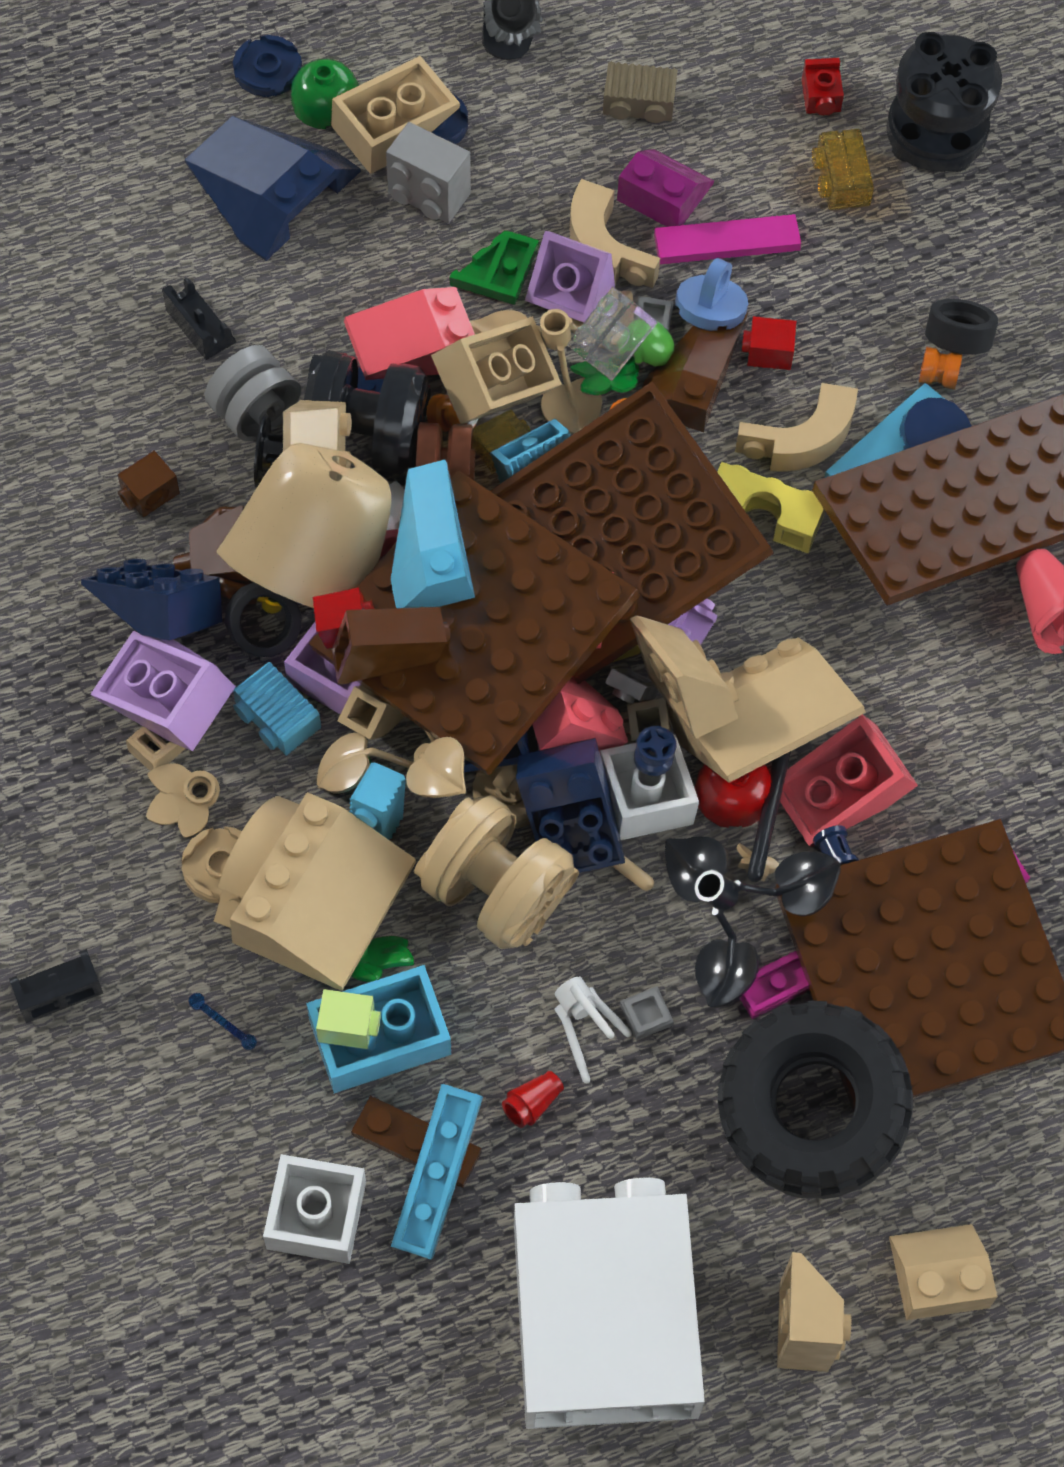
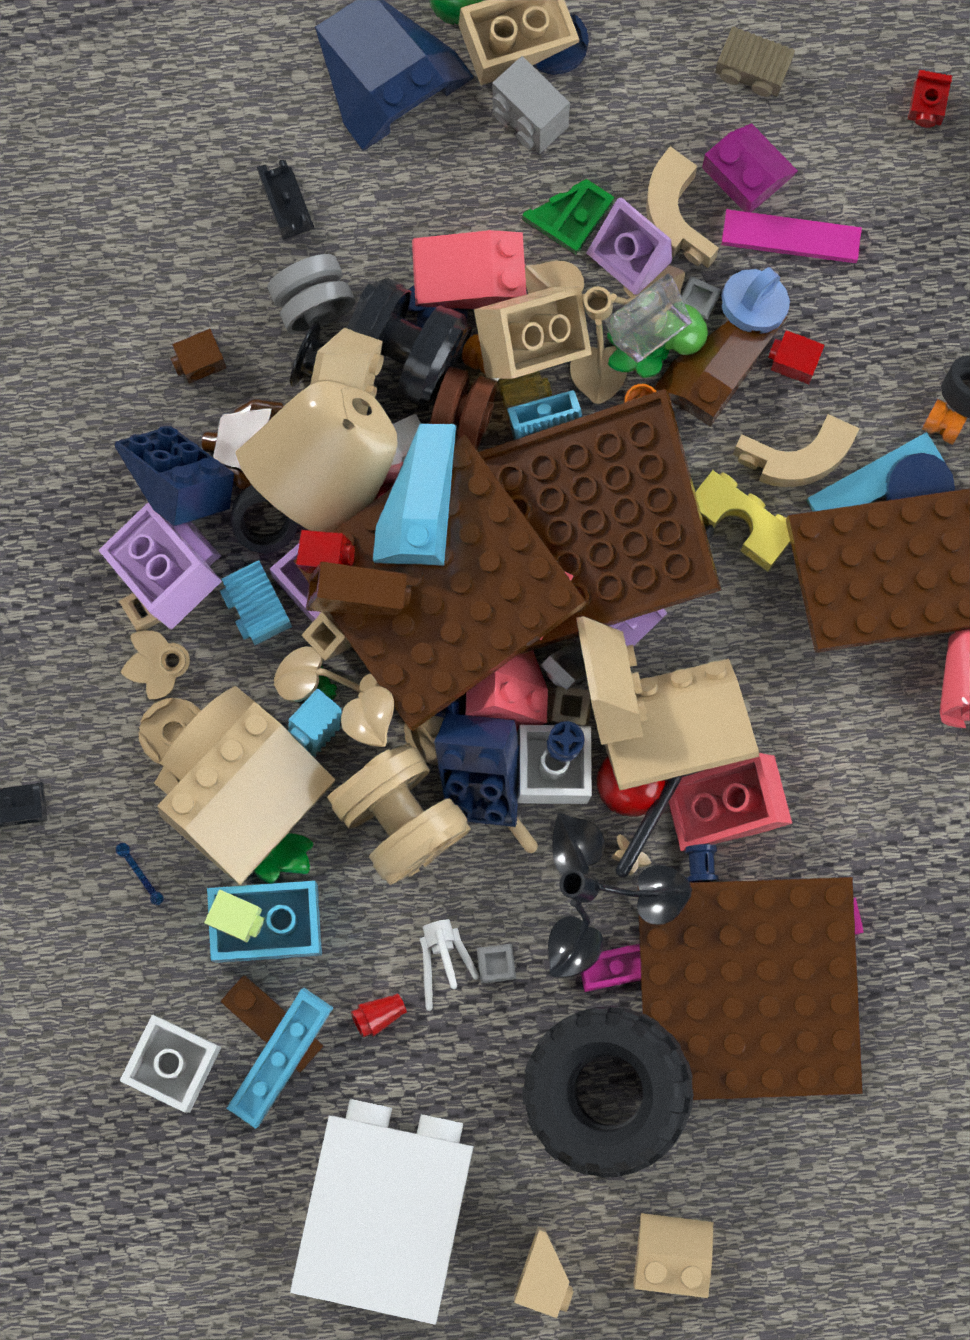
camera: 20 degrees right, 15 degrees up
(843, 169) = (921, 192): clear yellow brick -> none

